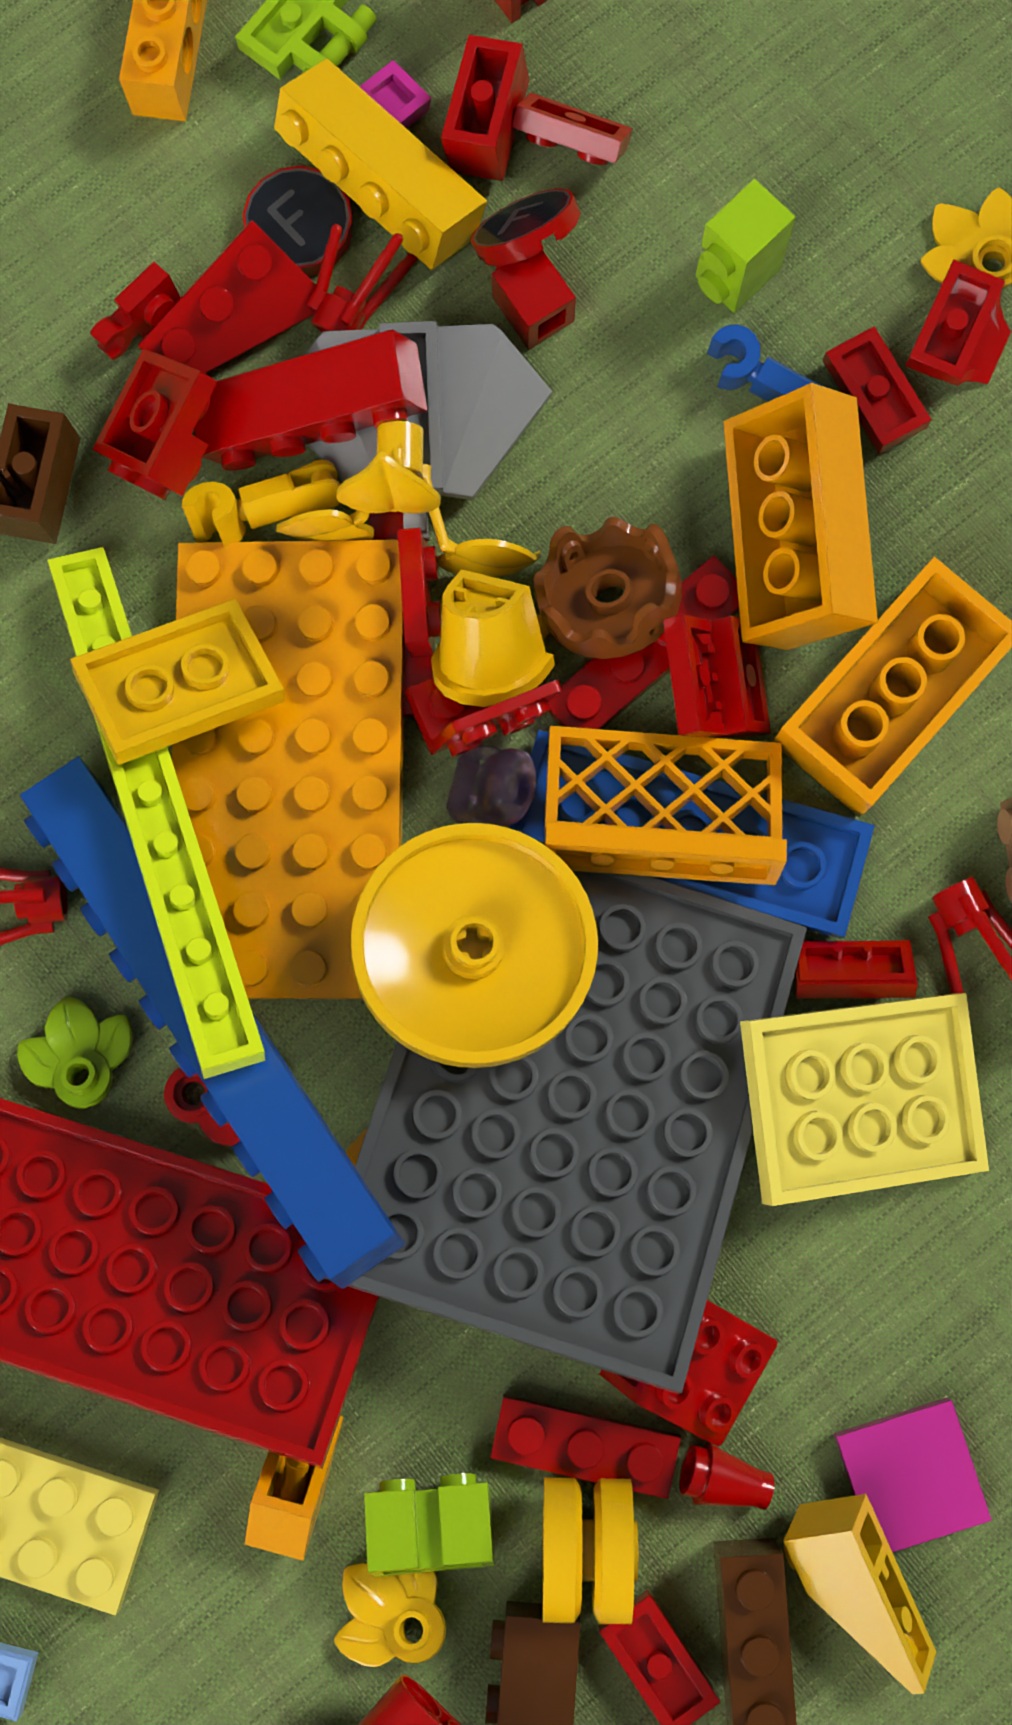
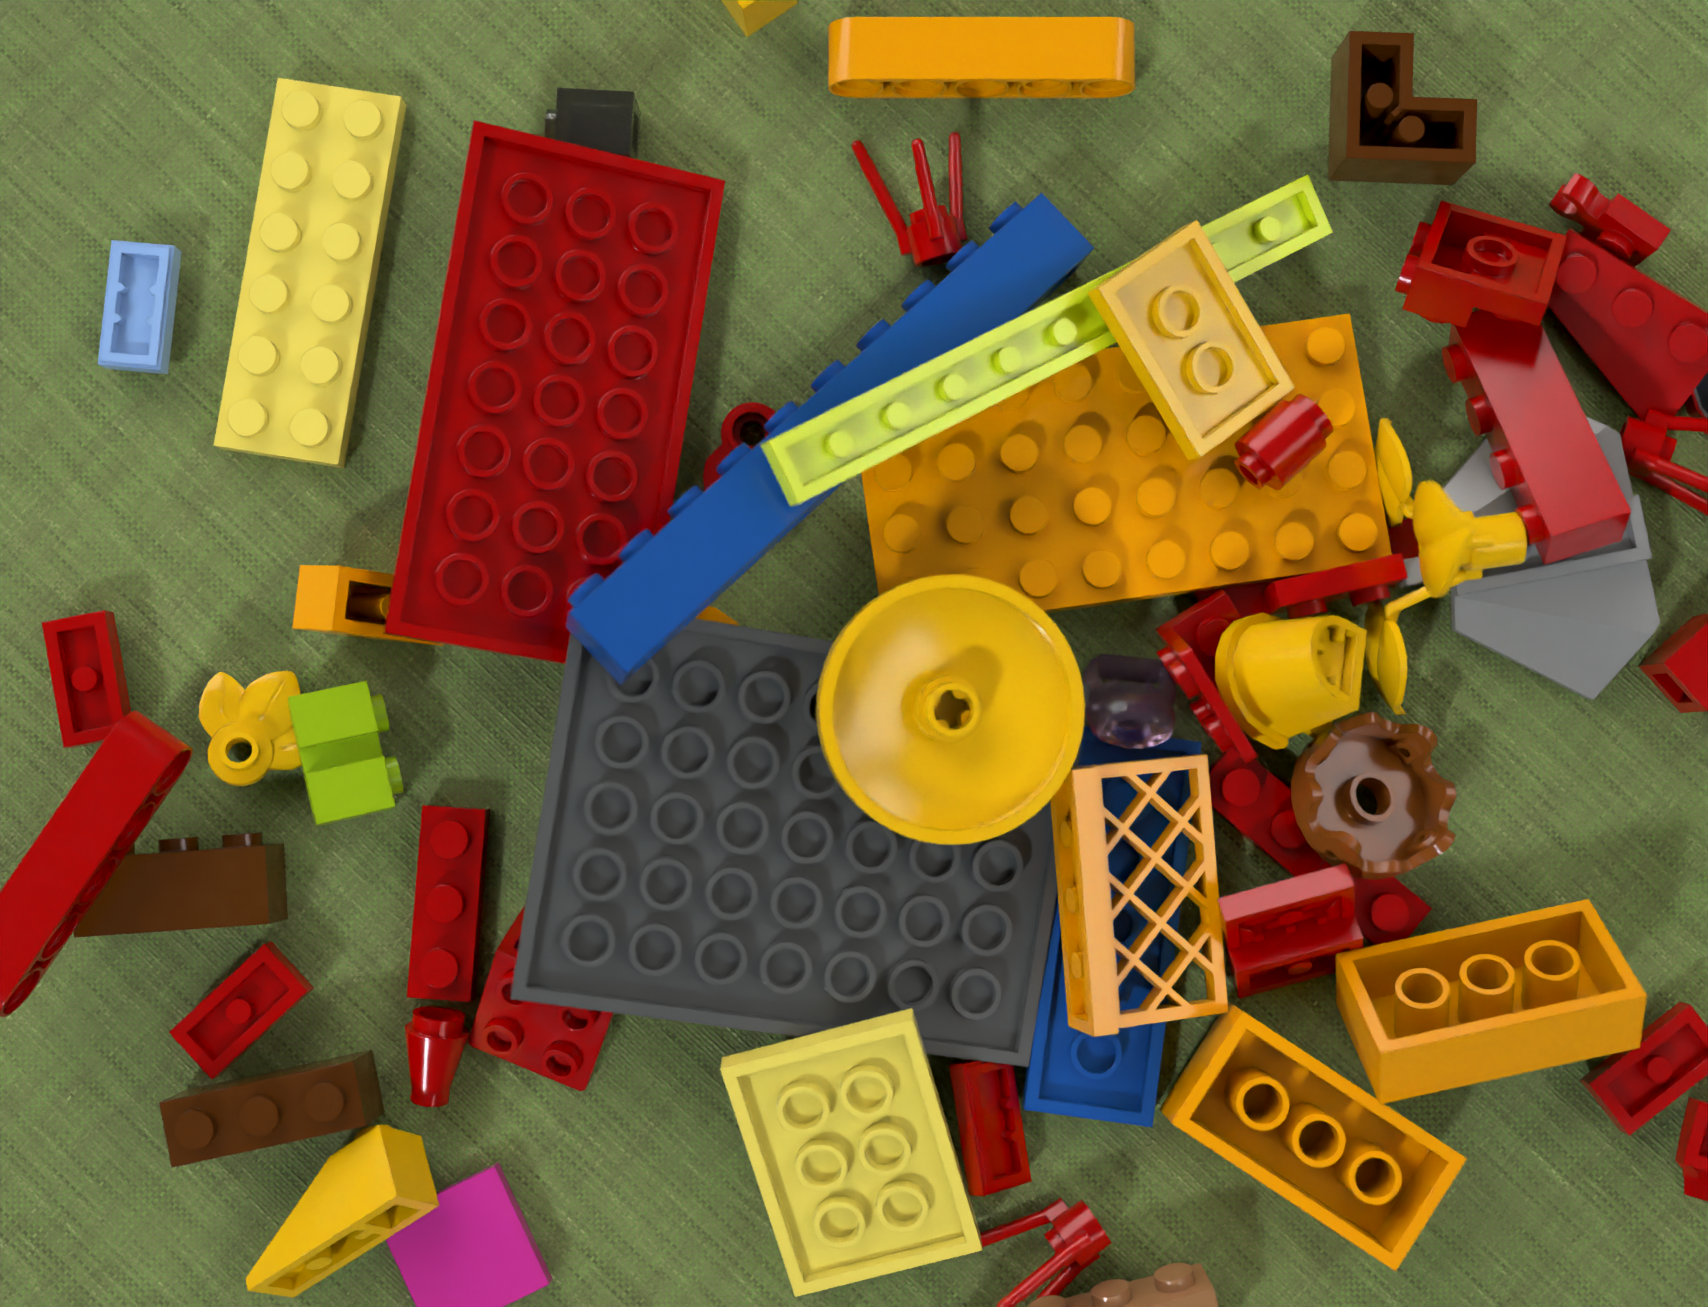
camera: 80 degrees right, 5 degrees up
(75, 1043) = (786, 298): lime plate -> none
(214, 506) = (1431, 440): yellow piece -> none
(283, 616) = (1282, 442): none -> red brick
(589, 1550) = (342, 926): yellow wheel -> none
(767, 378) = (1646, 945): blue piece -> none

